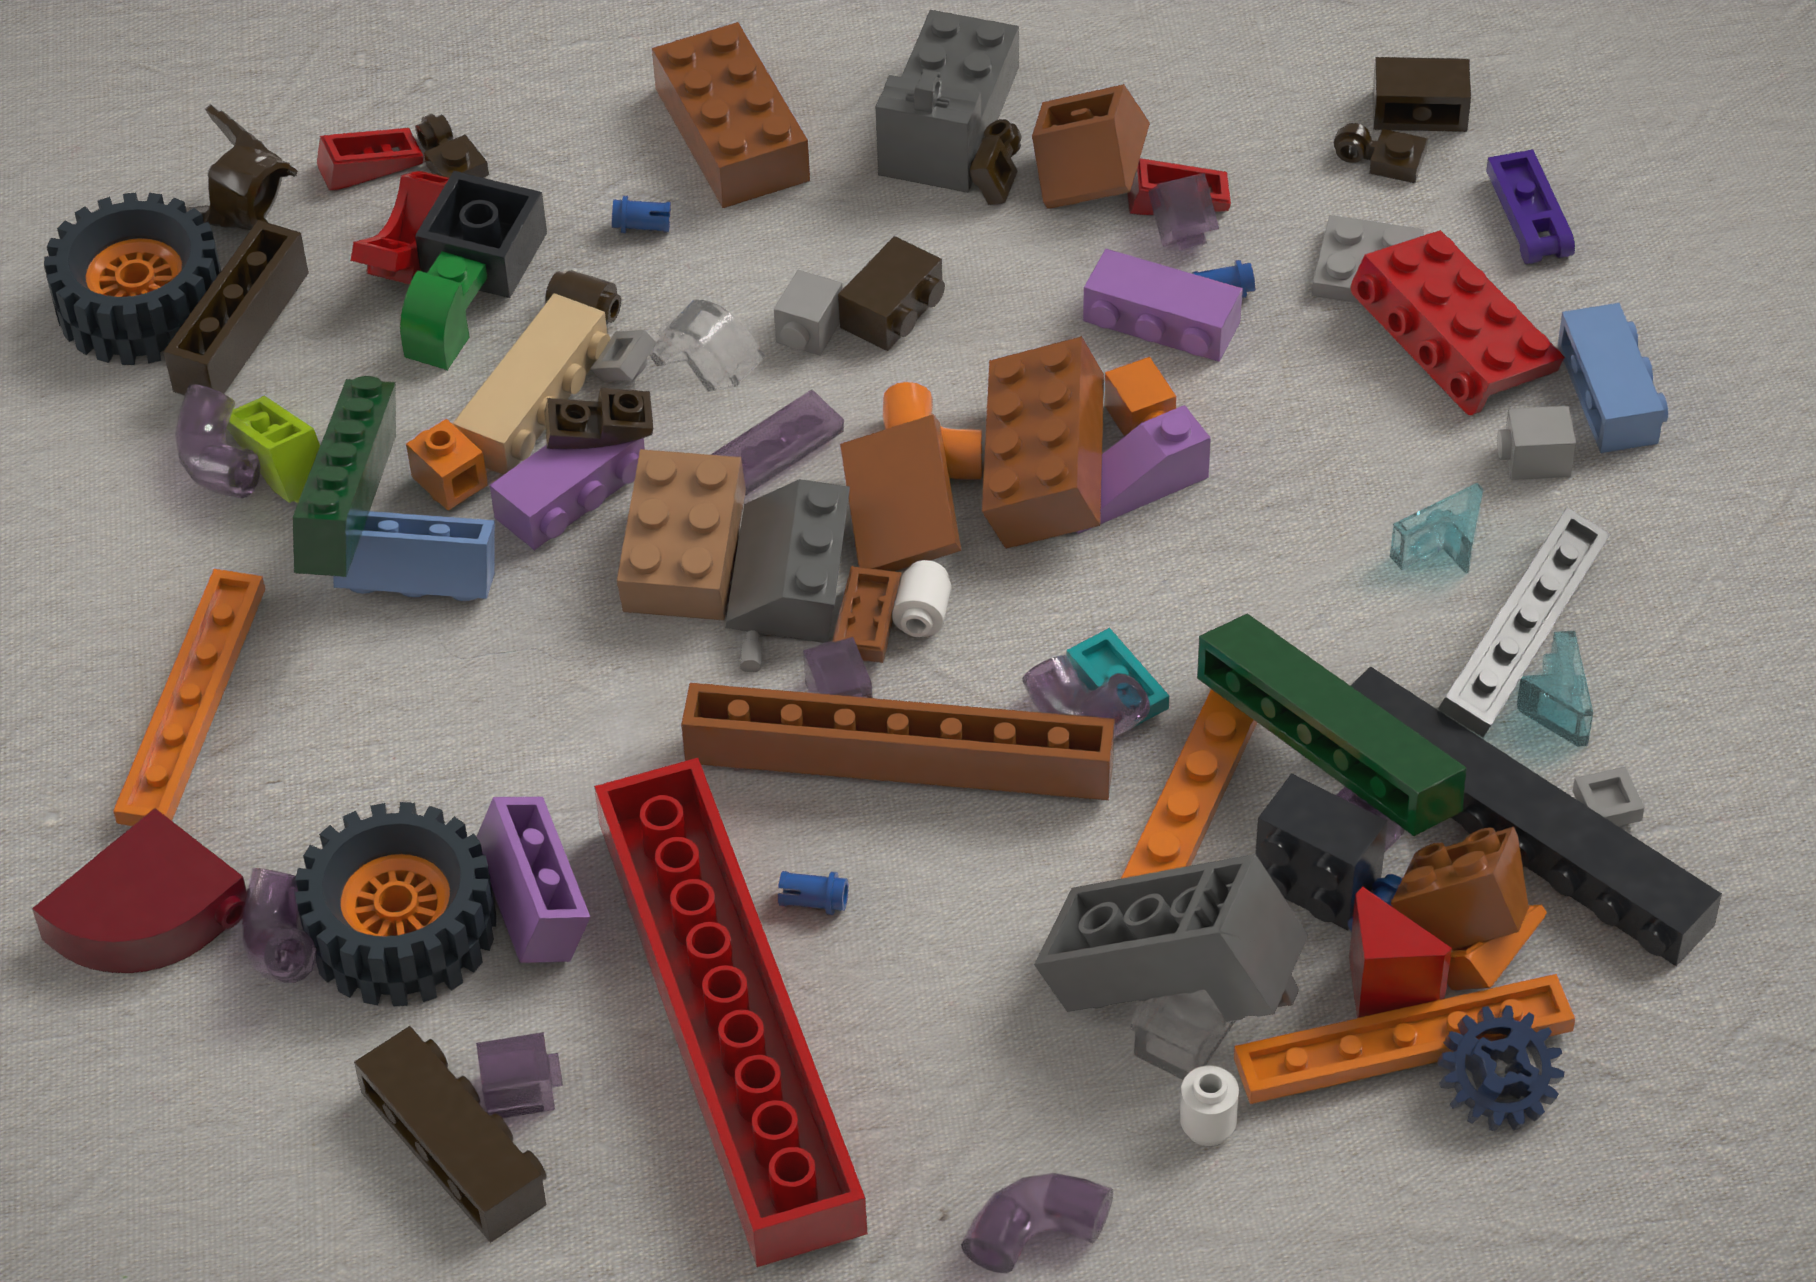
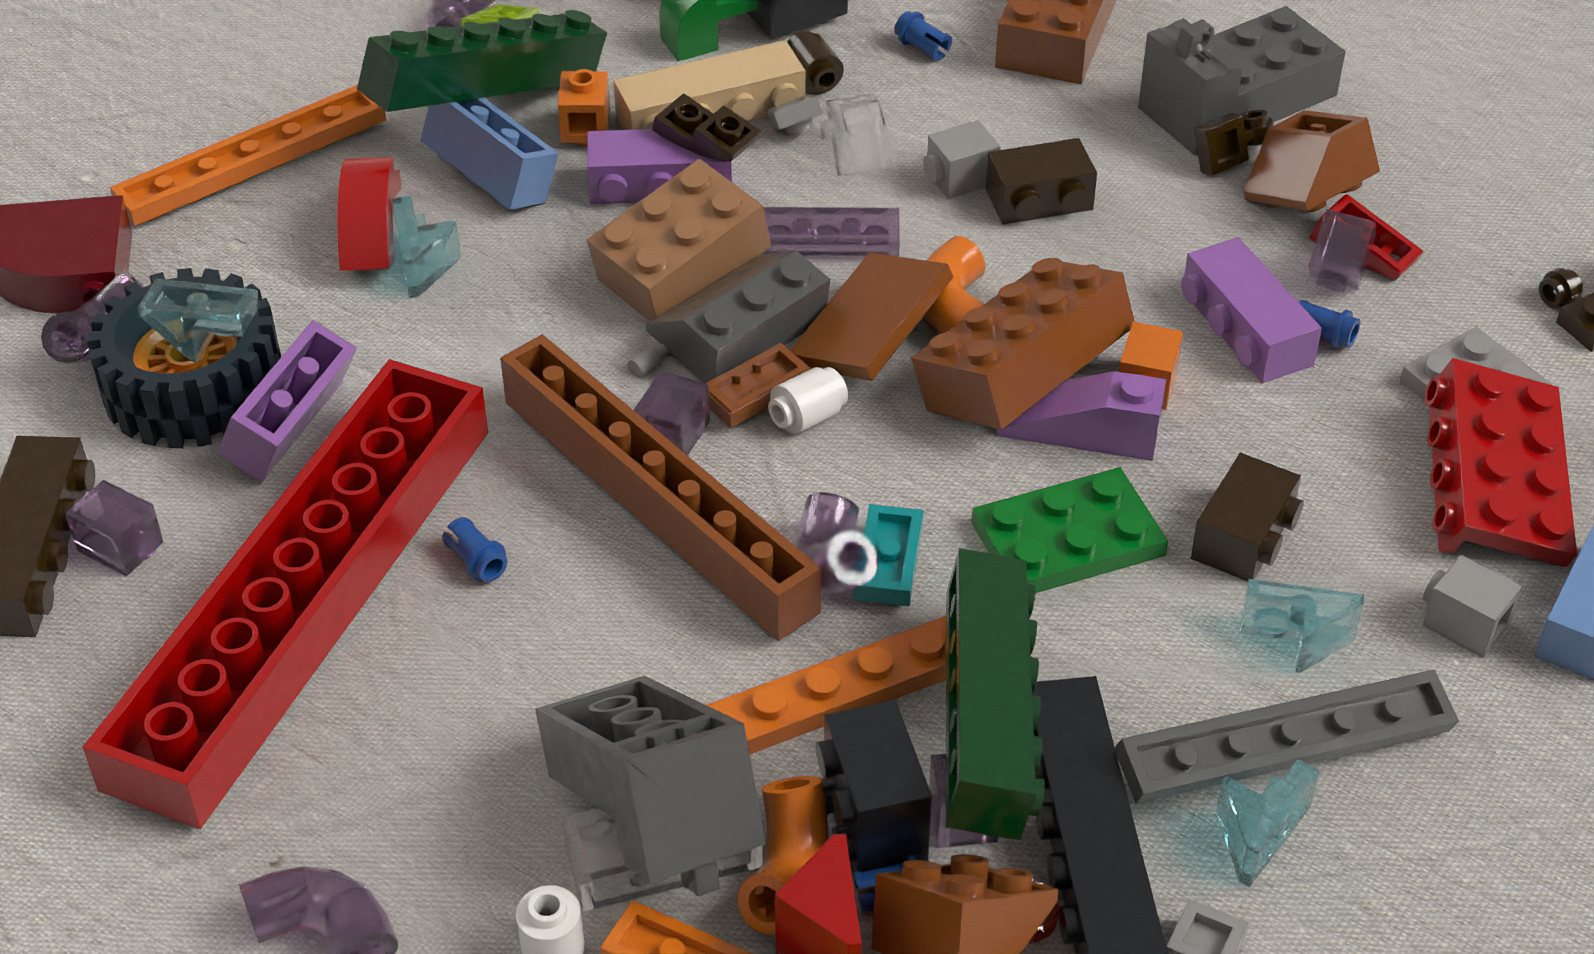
camera: 40 degrees right, 5 degrees down
(385, 677) = (366, 213): none -> red arch
(394, 854) = (193, 312): none -> clear light blue slope
(453, 686) = (424, 249): none -> clear light blue slope
(1214, 570) = (1072, 529): none -> green plate
(1323, 964) = (795, 832): none -> orange cylinder
(1332, 477) = (1247, 518): none -> dark brown brick

